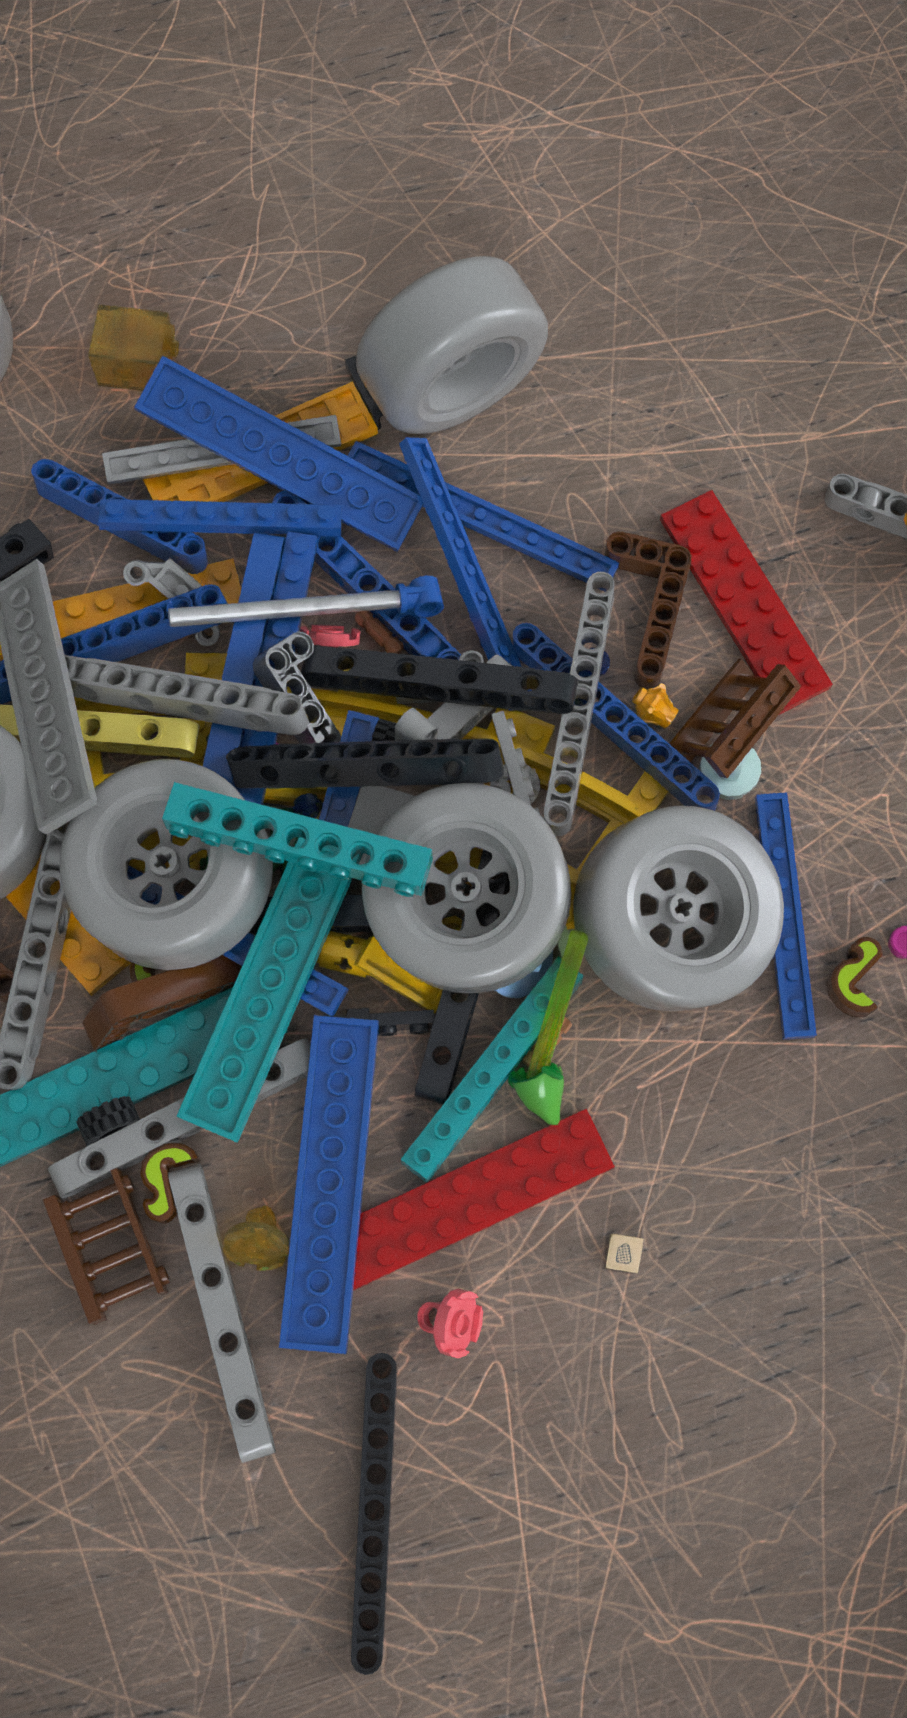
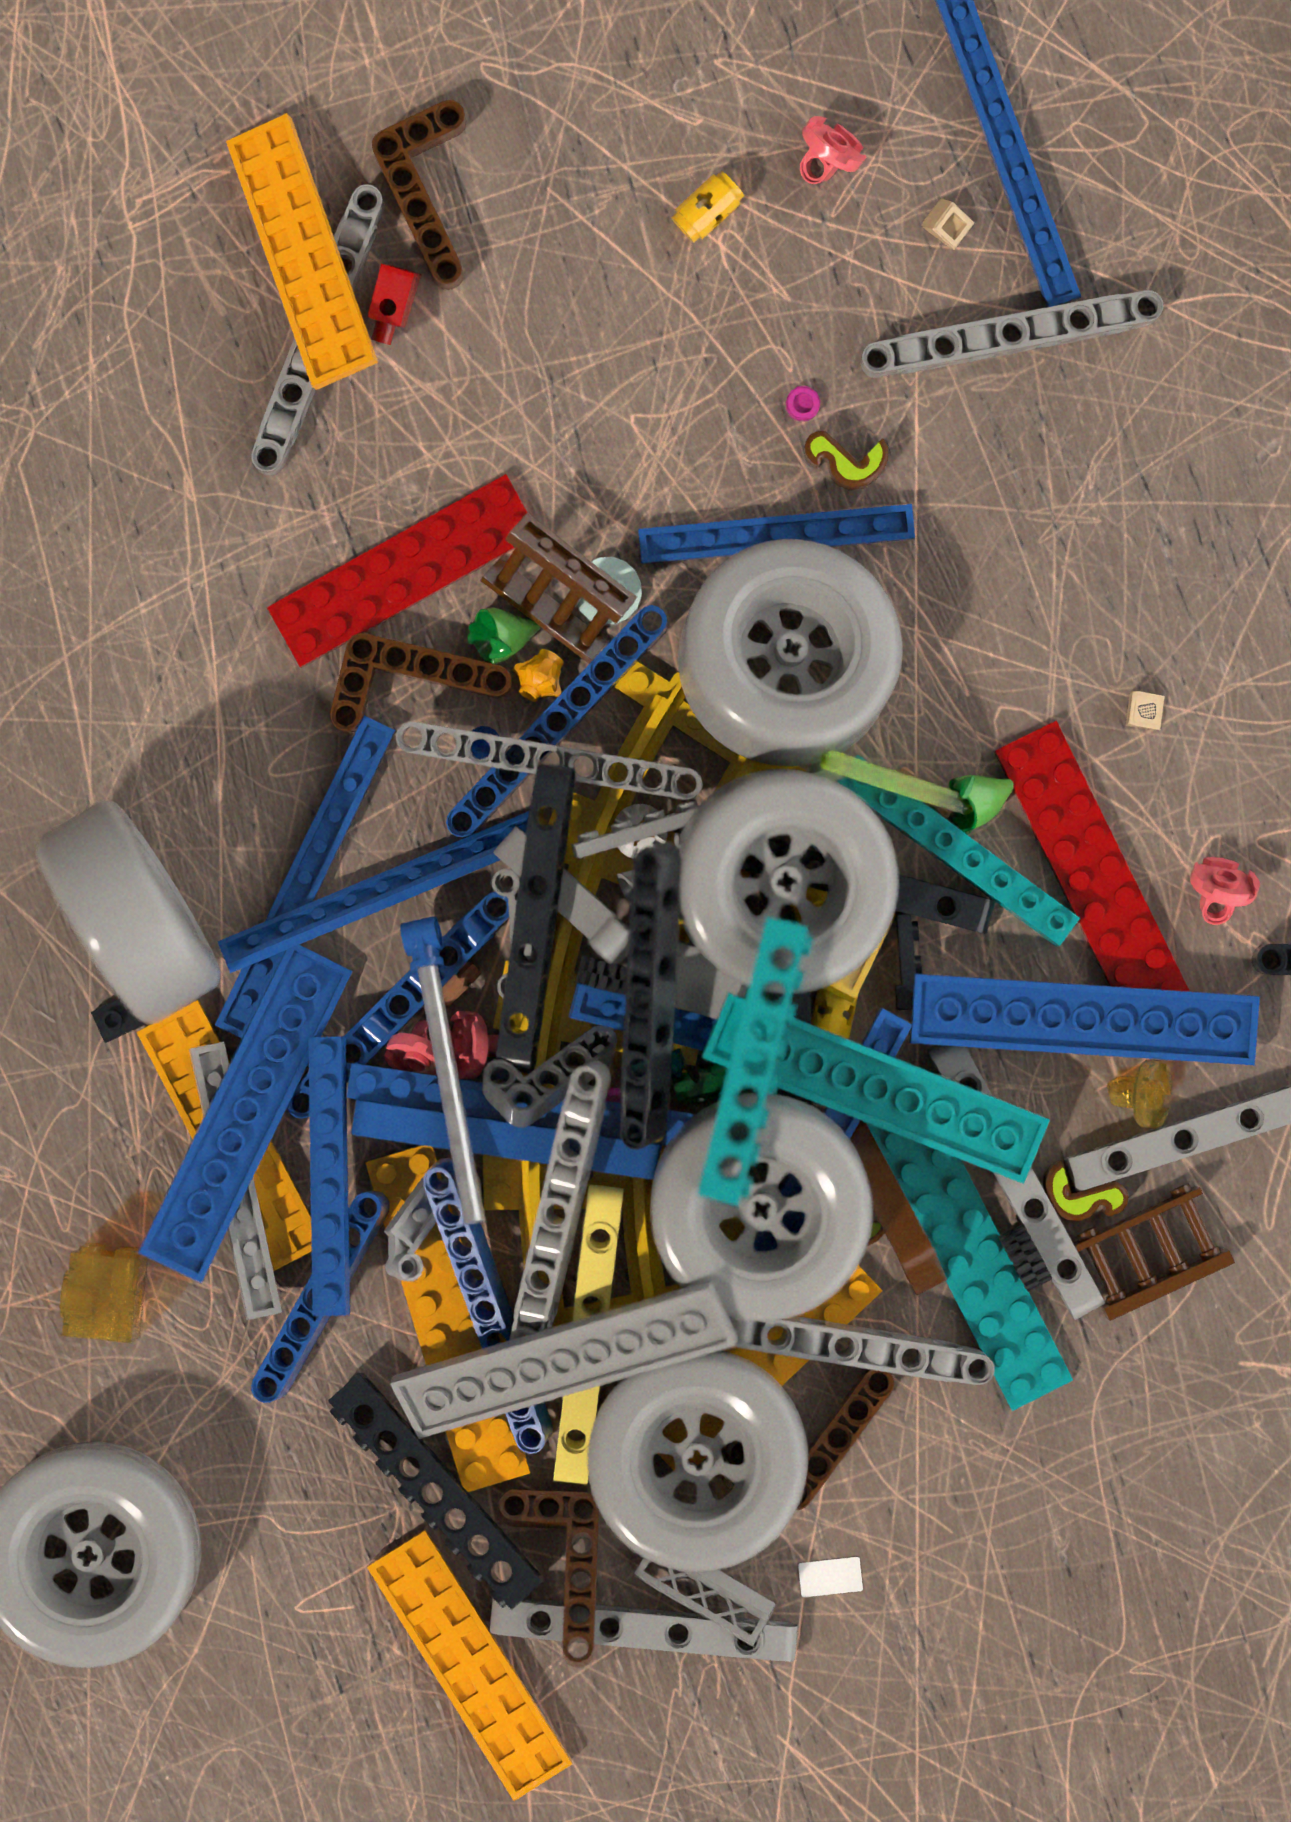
camera: 90 degrees left, 15 degrees up
(324, 585) = (411, 1051): none -> coral tile
(691, 675) = (499, 634): none -> hat

